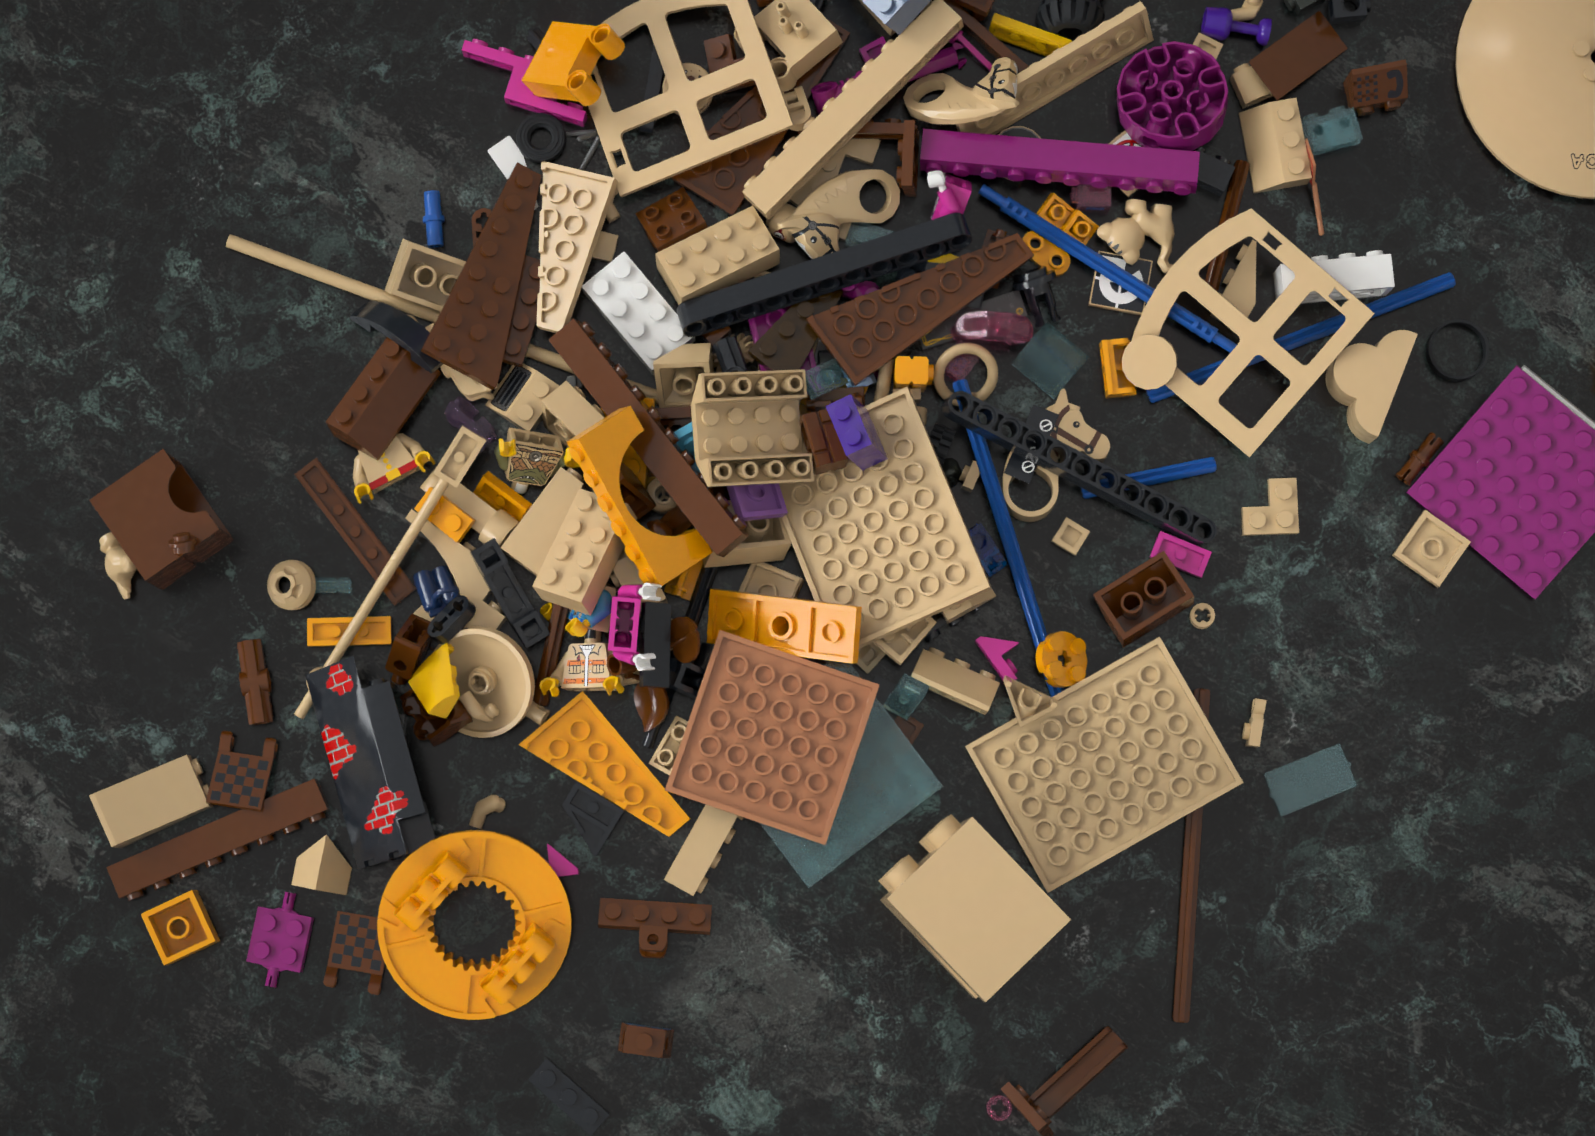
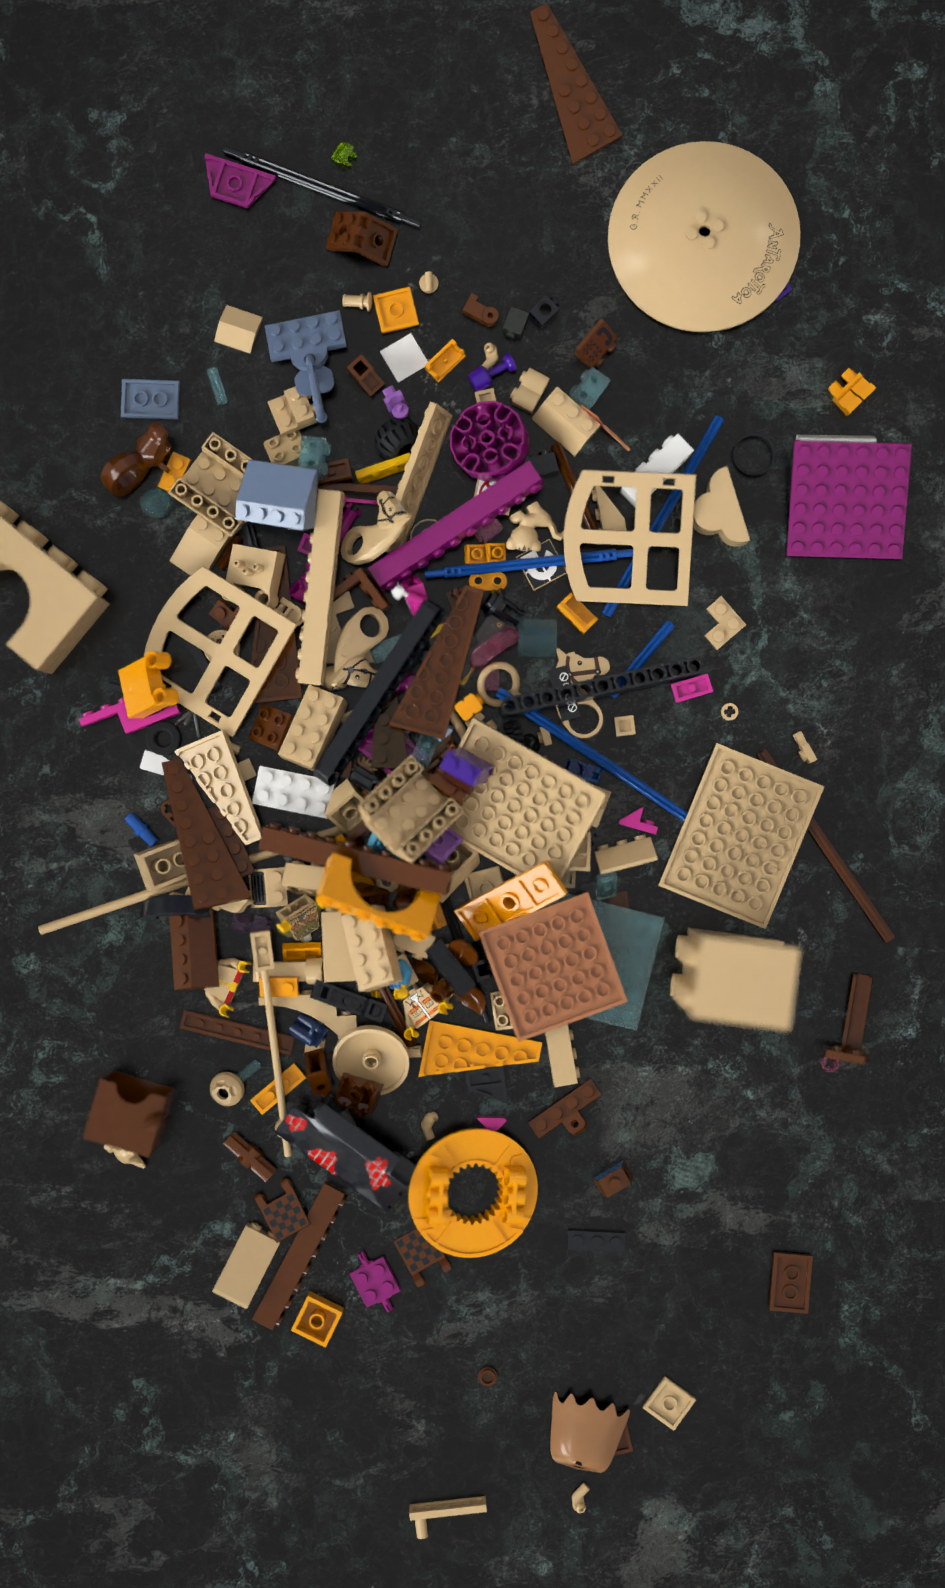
camera: 40 degrees left, 5 degrees up
(322, 868) = (367, 1226): tan slope -> none
(436, 682) = (348, 1081): yellow slope -> none
(451, 619) = (329, 1040): black beam -> none
(478, 711) = (382, 1077): tan arm -> none
(625, 624) = (426, 971): dark pink torso -> none
(1028, 702) = (674, 836): tan slope -> none
(1074, 654) = (680, 790): light orange plate -> none
(1144, 598) = (691, 728): reddish brown slope -> none
(1149, 361) = (592, 597): tan tile -> none
(1298, 55) = (538, 361): reddish brown sticker -> none
(1310, 779) = (857, 753): clear light blue piece -> none
(1419, 458) = (779, 531): reddish brown pin -> none
(1431, 548) = (824, 576): tan plate -> none

